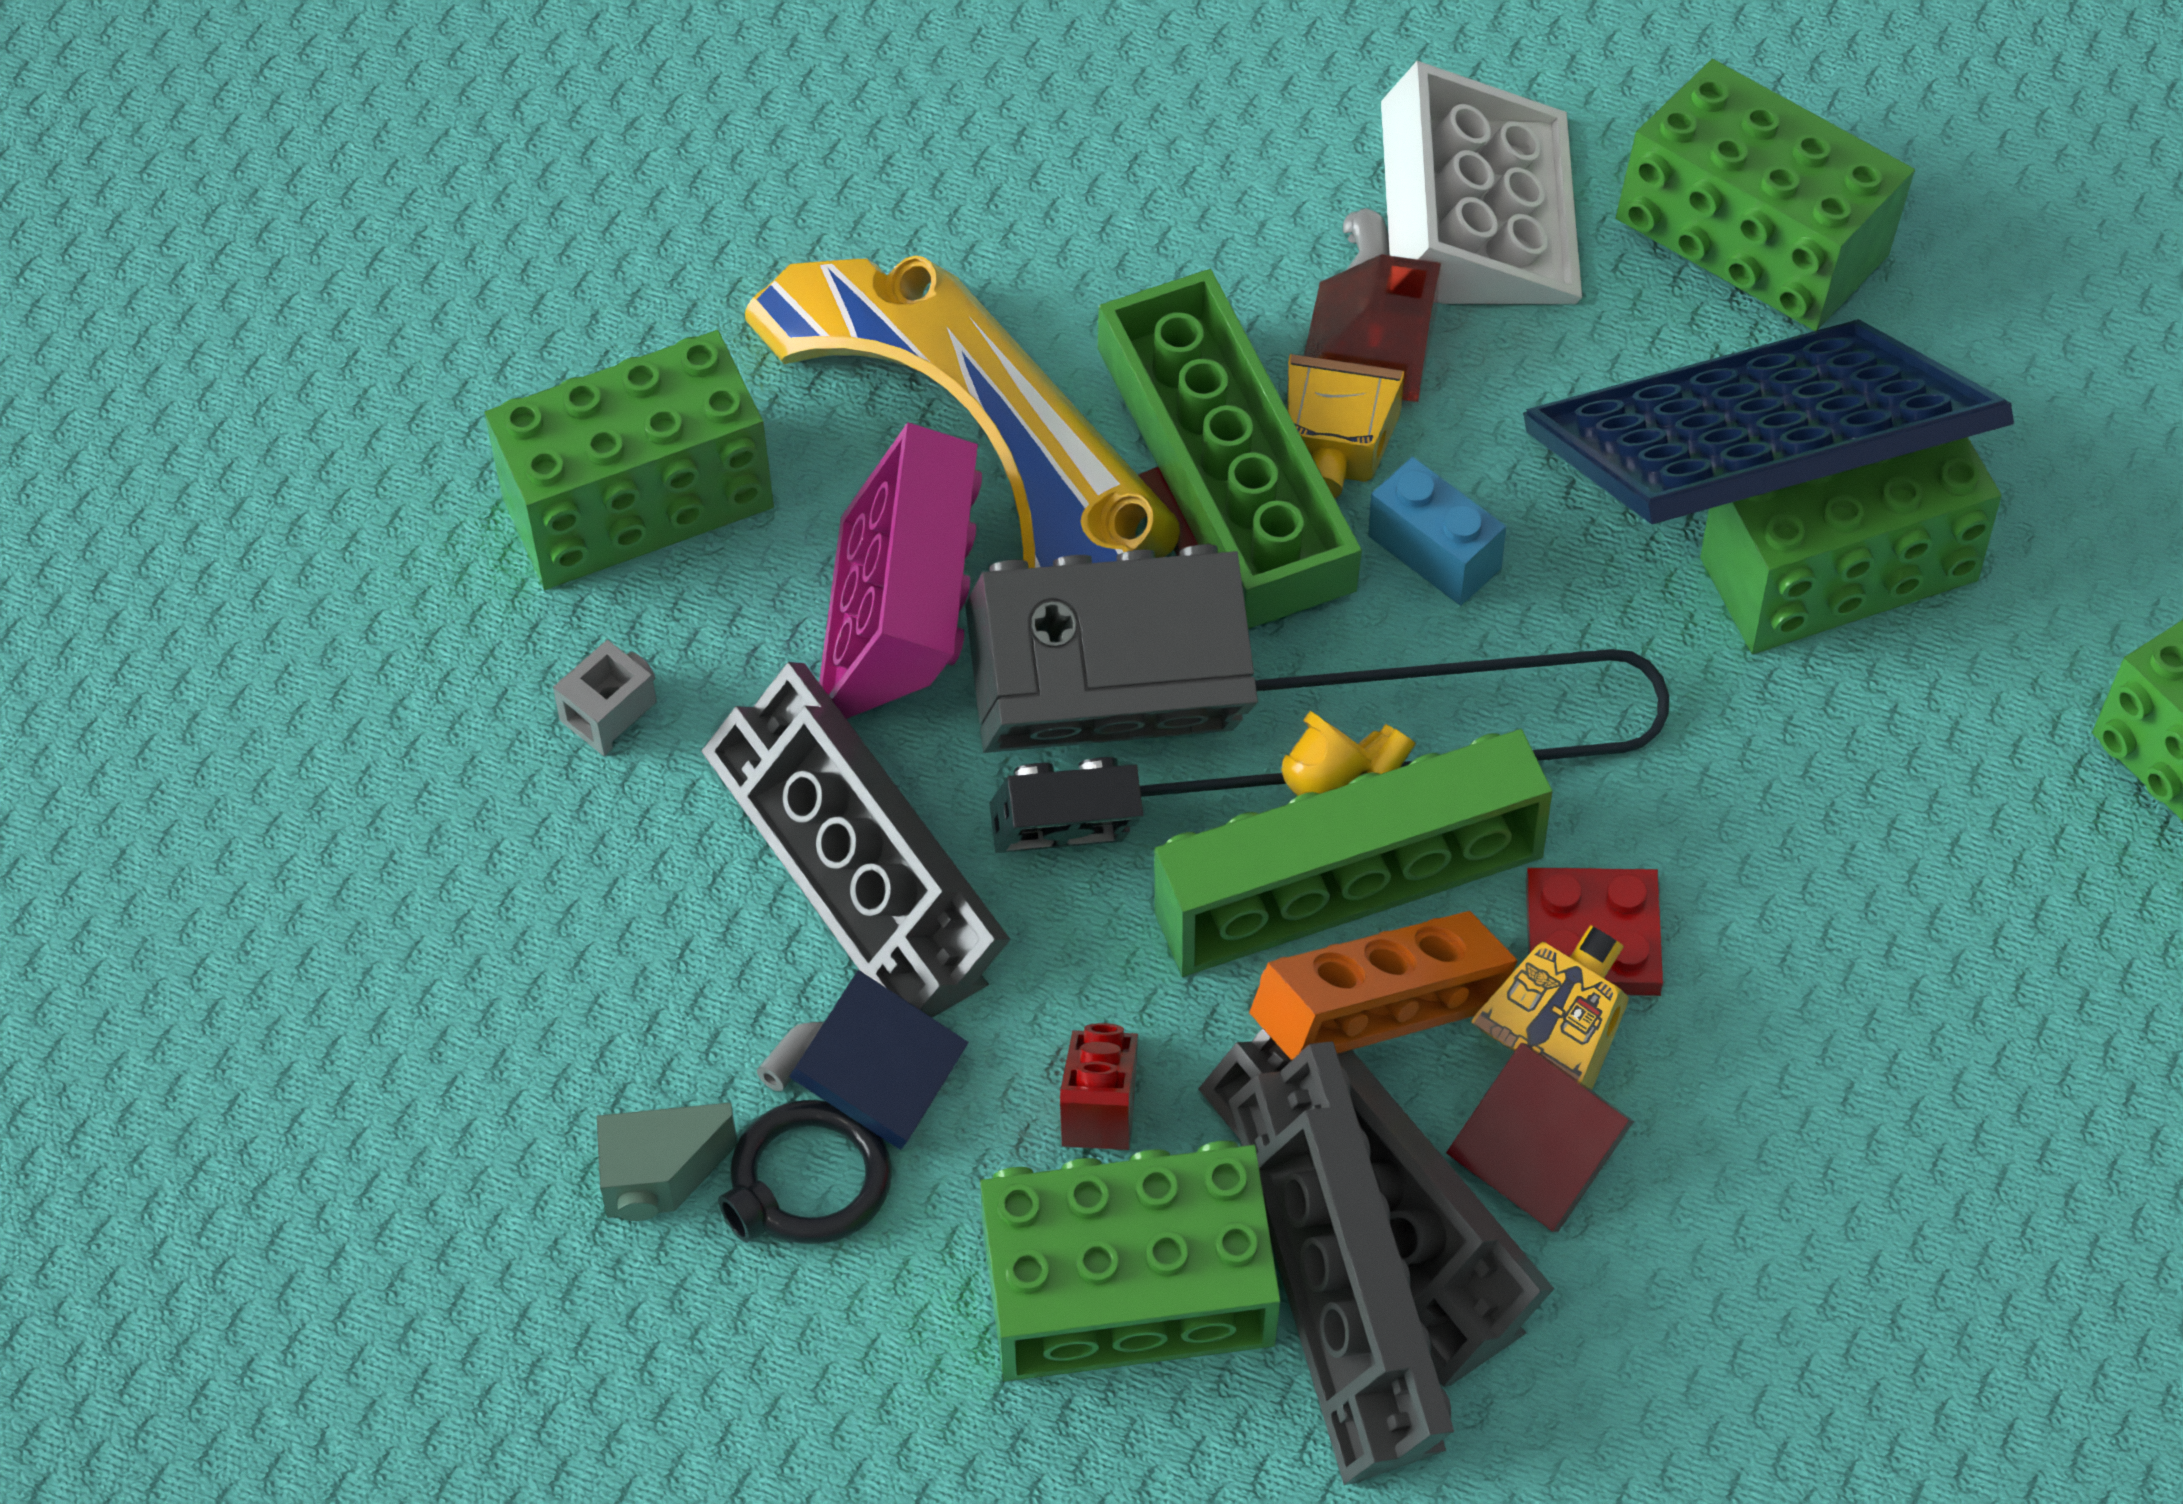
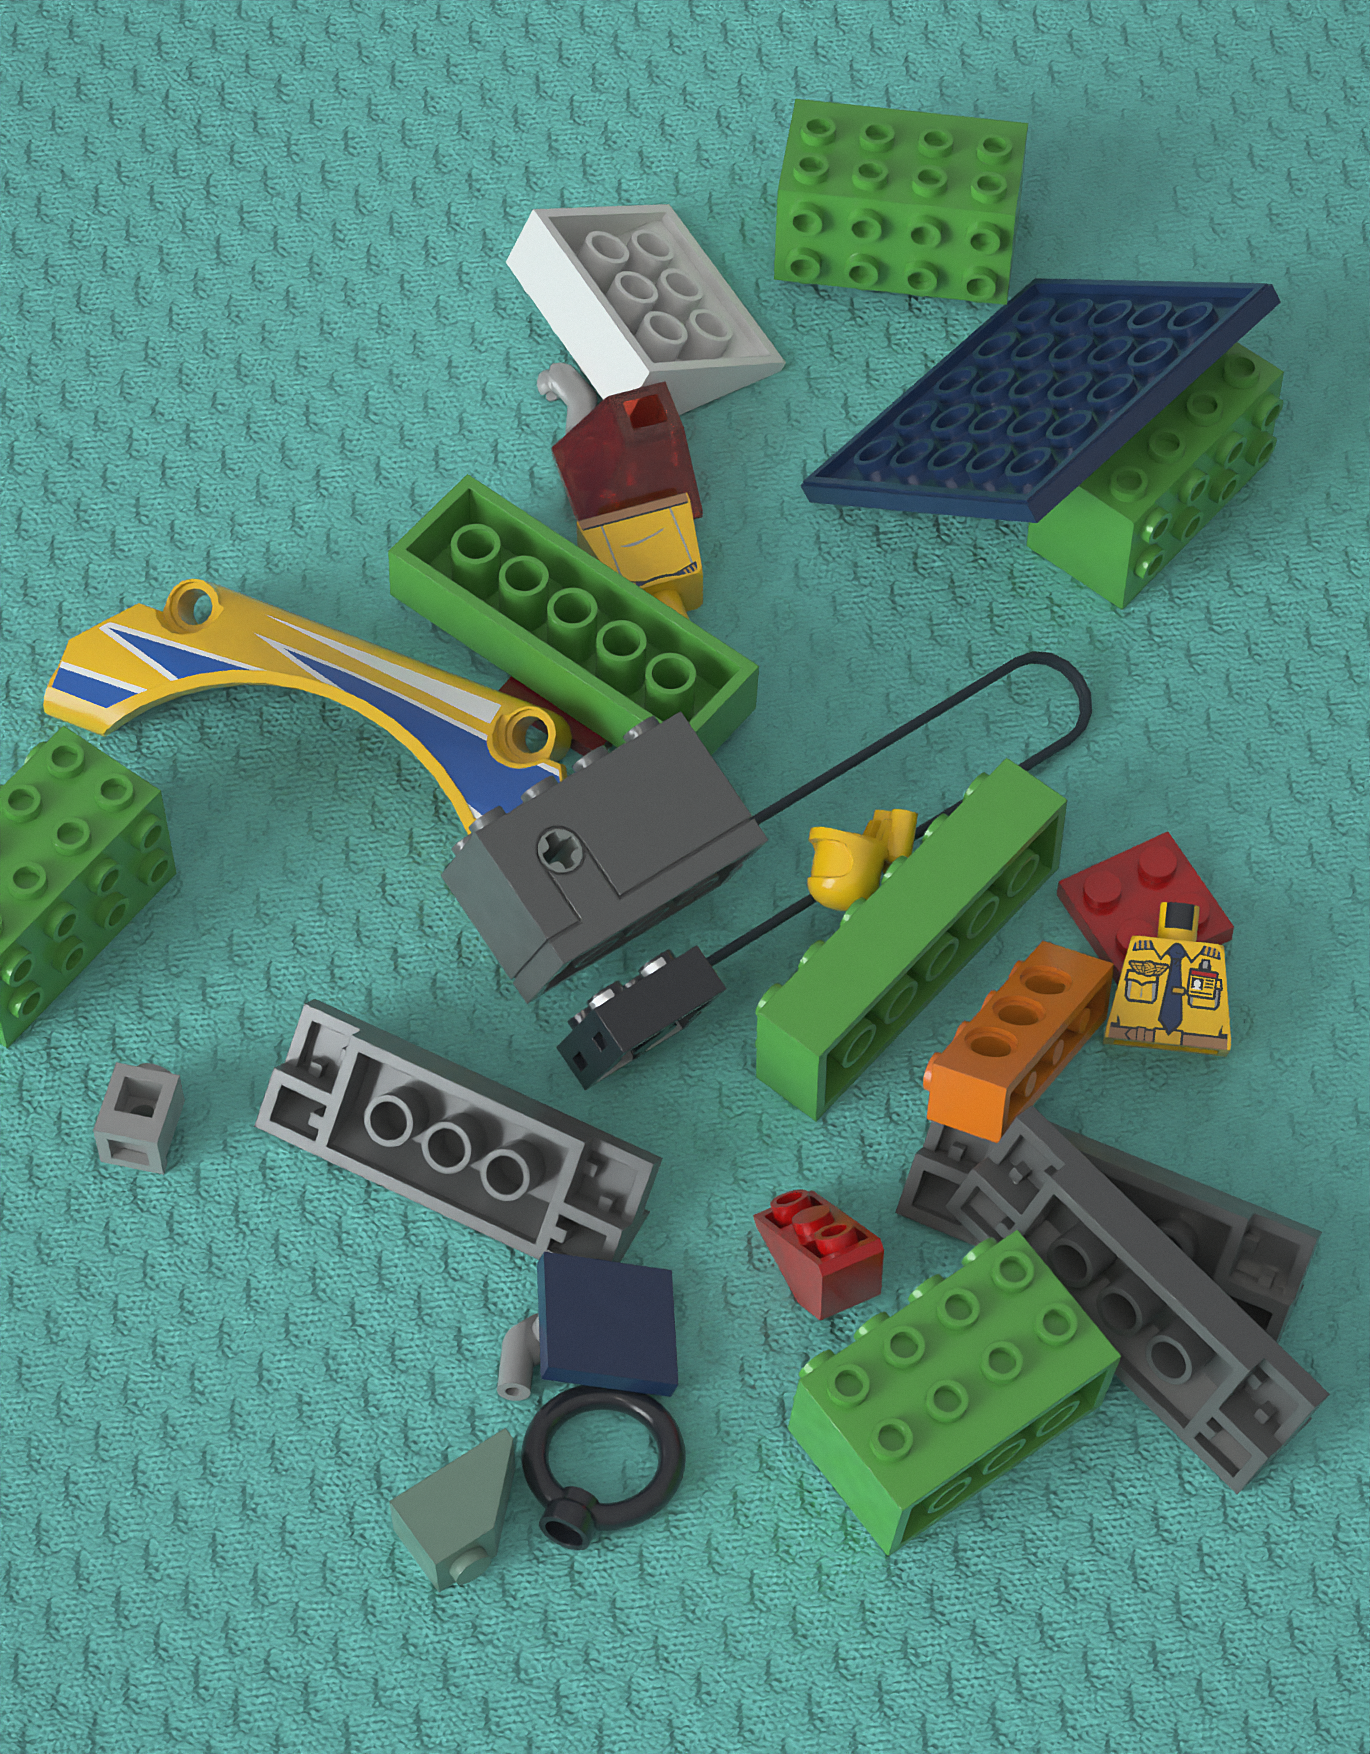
camera: 30 degrees left, 0 degrees up
(901, 572) = (356, 876): dark pink slope -> none
(1436, 531) = (798, 622): dark azure brick -> none
(1539, 1137) = (1221, 1109): dark red tile -> none

